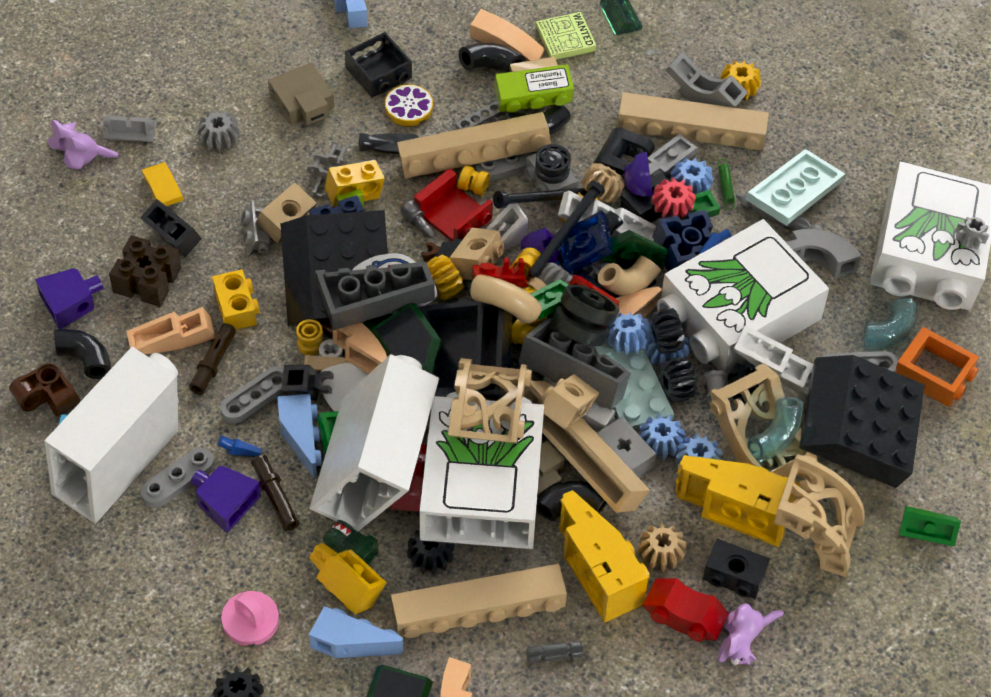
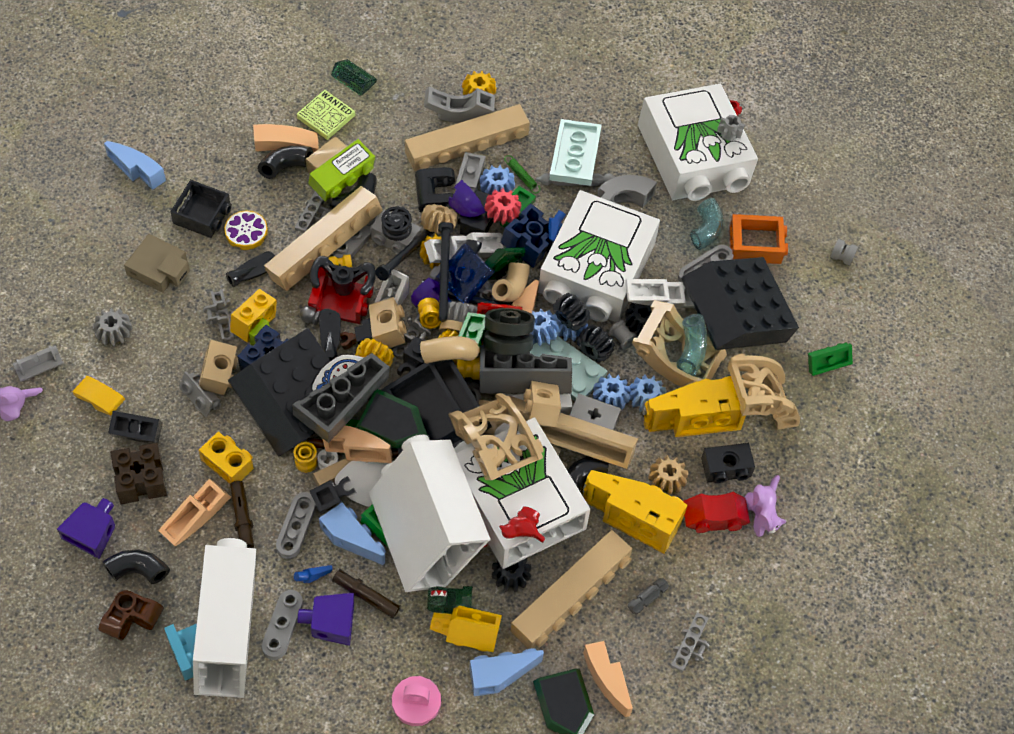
camera: 35 degrees left, 5 degrees up
(419, 234) = (330, 332): none -> black piece
(451, 495) = (523, 525): none -> red animal
(464, 189) = (343, 276): none -> black piece
(513, 275) = (424, 330): red plate -> none

